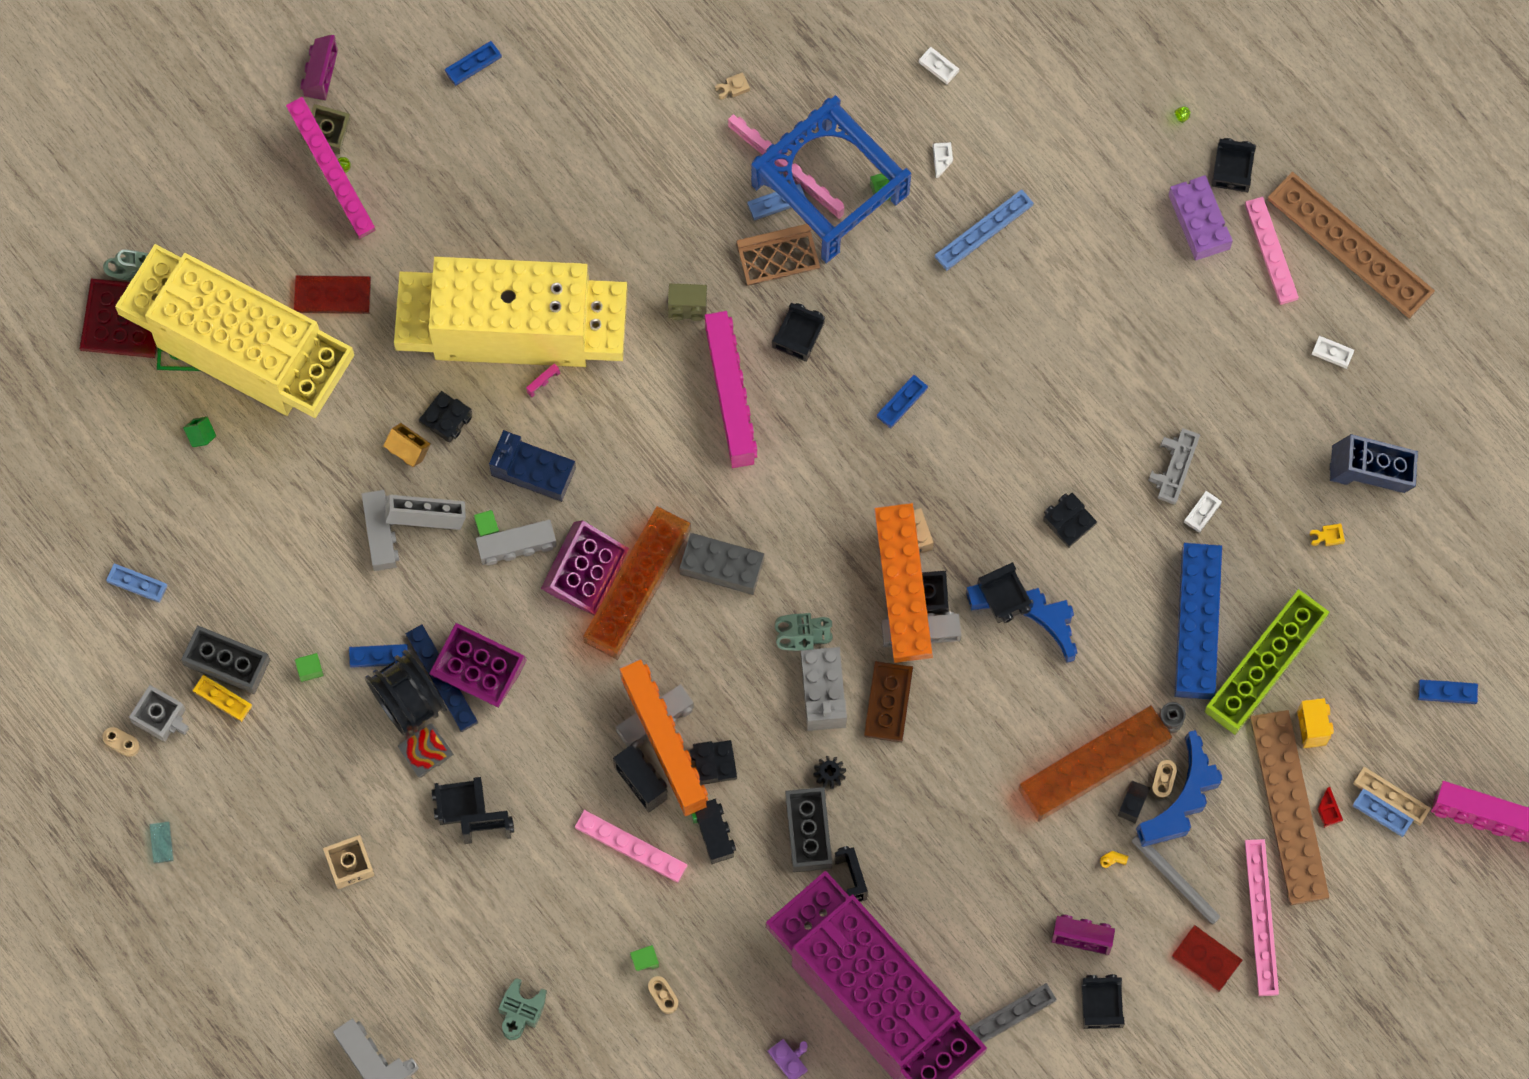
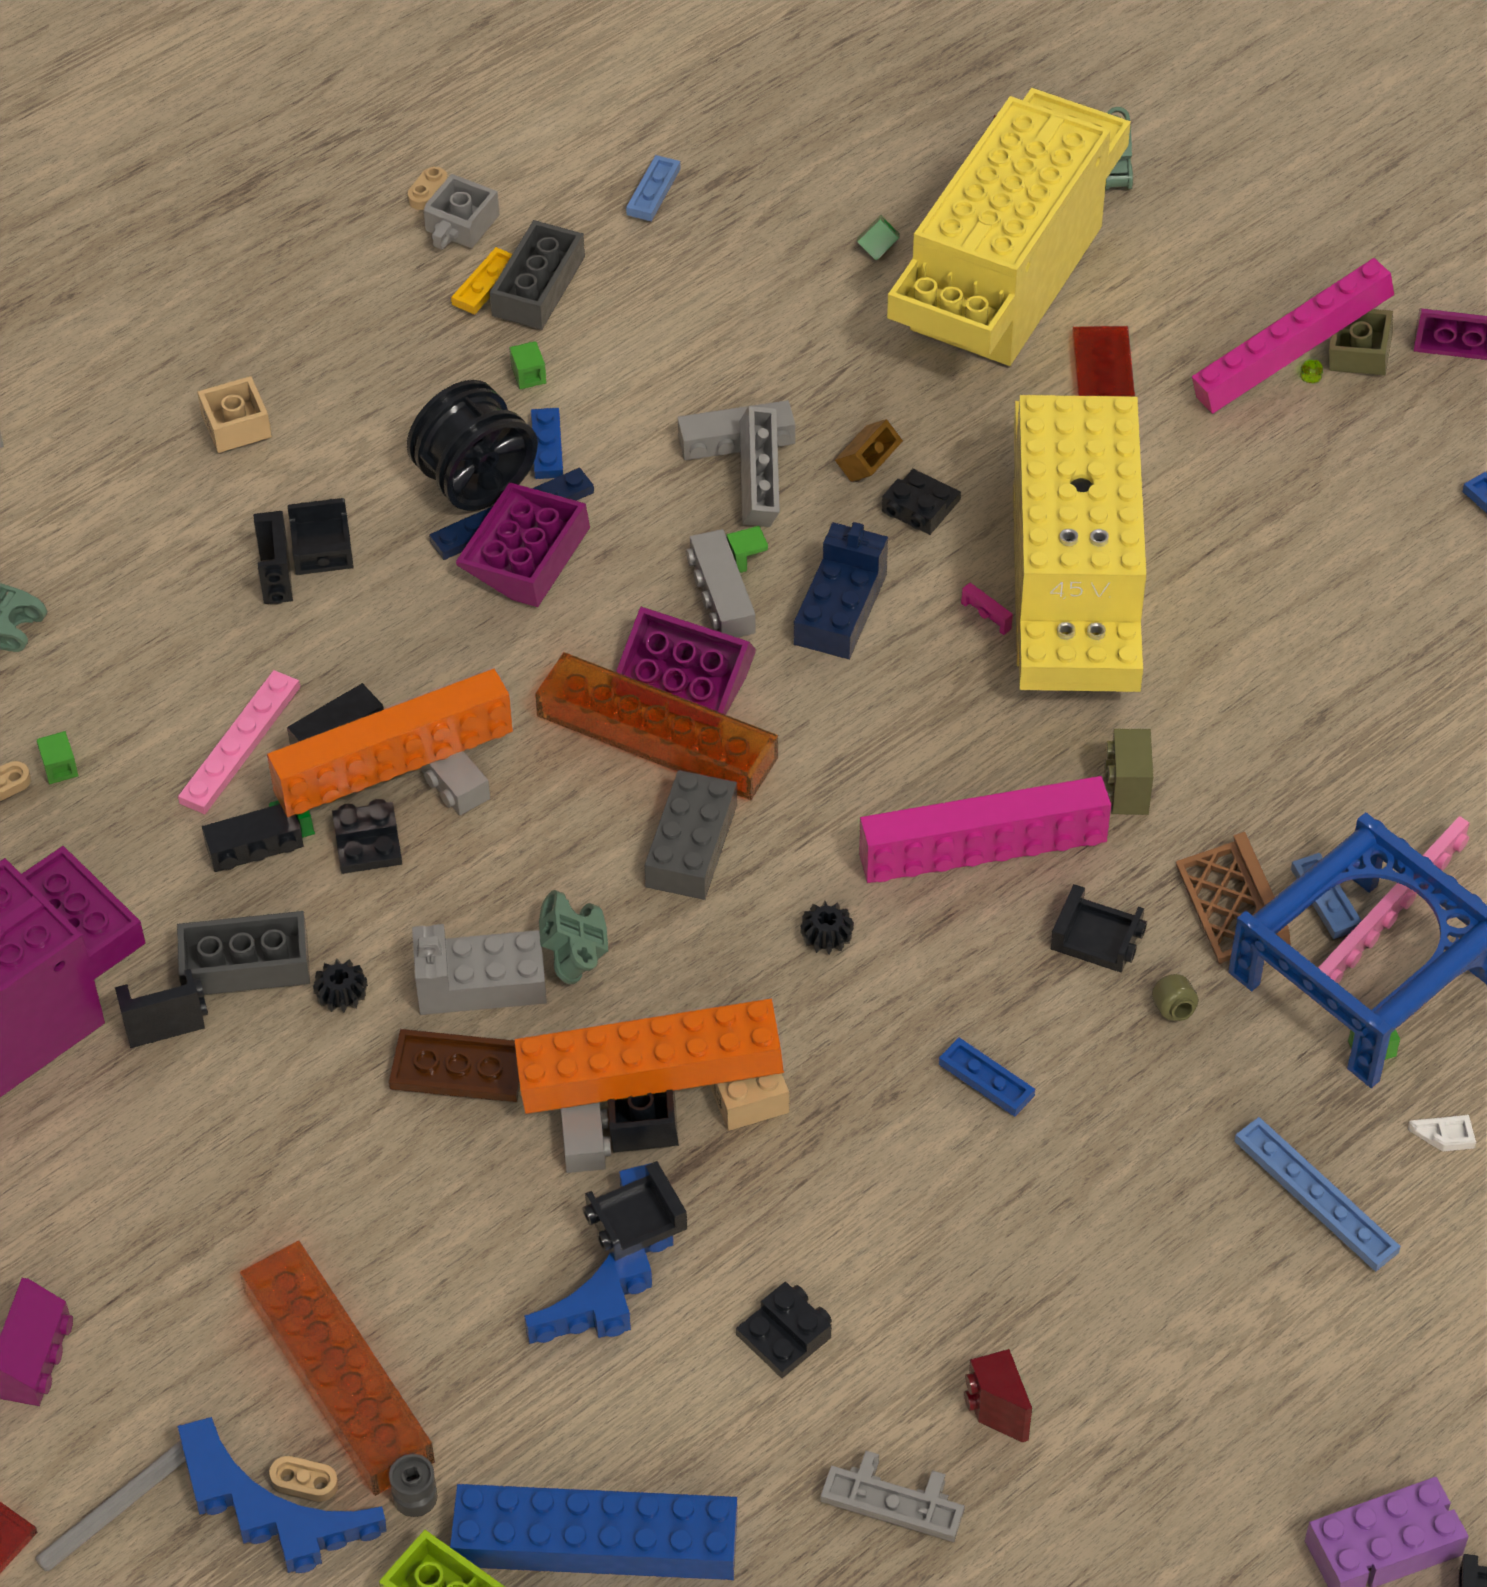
camera: 90 degrees right, 20 degrees down
(161, 842) = (283, 235): clear light blue tile -> none
(425, 750) = (400, 497): slope -> none
(788, 480) = (827, 927): none -> black gear
(850, 292) = (1175, 997): none -> olive head
(1113, 857) = (168, 1397): yellow arm -> none
(1117, 404) = (999, 1395): none -> dark red slope
(1133, 802) = (264, 1428): black slope -> none
(1202, 512) = (806, 1544): white plate -> none

